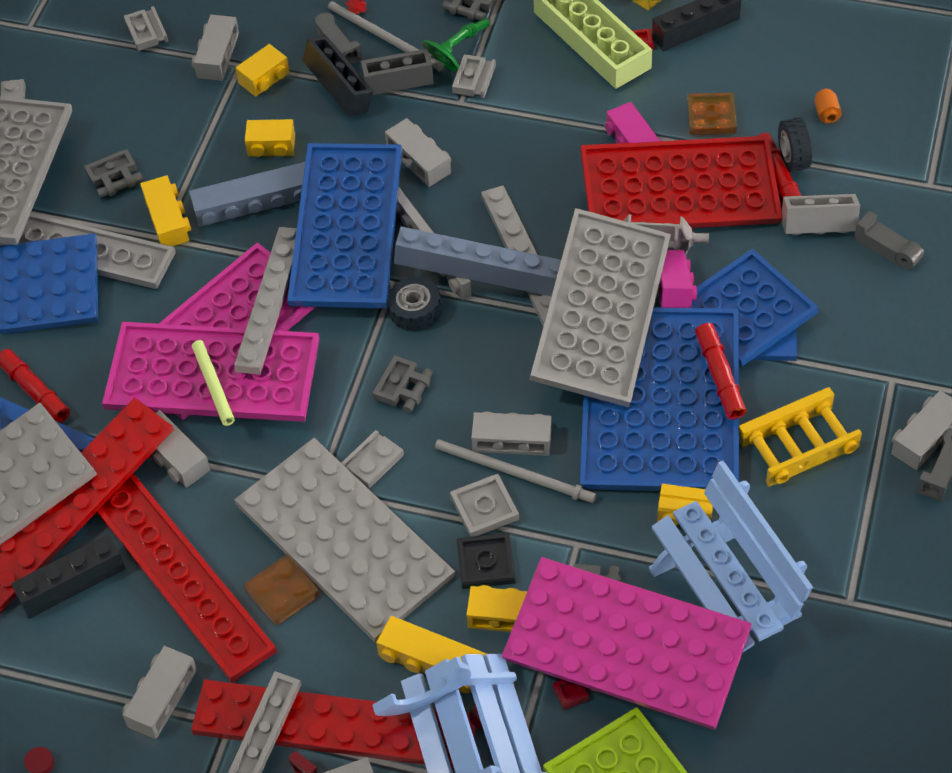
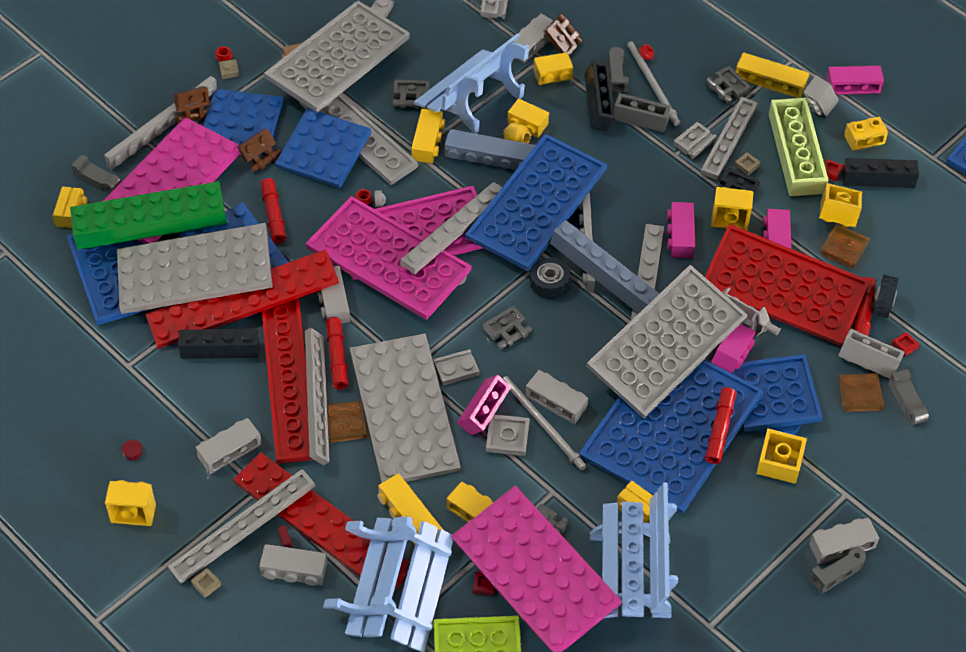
camera: 25 degrees right, 0 degrees up
(134, 313) = (364, 196): none -> red plate
(154, 311) = (380, 199): none -> light grey tile
(187, 120) = (470, 79): none -> light blue piece
(213, 383) = (381, 265): yellowish green piece -> none
(220, 514) = (337, 354): none -> red piece
(233, 578) = (316, 397): none -> light grey plate
(250, 27) = (559, 37): none -> plate
(269, 159) = (517, 133): none -> yellow head
(419, 152) = (621, 175): light grey brick -> none
(436, 485) = (484, 405): none -> dark pink brick
(443, 51) = (708, 106): green dish -> none
(486, 560) = (486, 471): black tile -> none
(510, 57) = (729, 138): none -> light grey plate
(526, 179) = (681, 230): none -> dark pink brick
(548, 75) = (747, 164): none -> dark tan plate
(554, 99) = (737, 180): none -> black plate
(567, 129) = (732, 208): none -> yellow brick
(681, 71) = (840, 205): none -> yellow brick
(798, 414) = (752, 481): yellow fence -> none
(801, 369) = (781, 456): none -> yellow brick
(827, 106) = (932, 280): orange brick -> none
(834, 261) = (861, 392): none -> clear orange plate
(843, 185) = (905, 343): none -> red tile

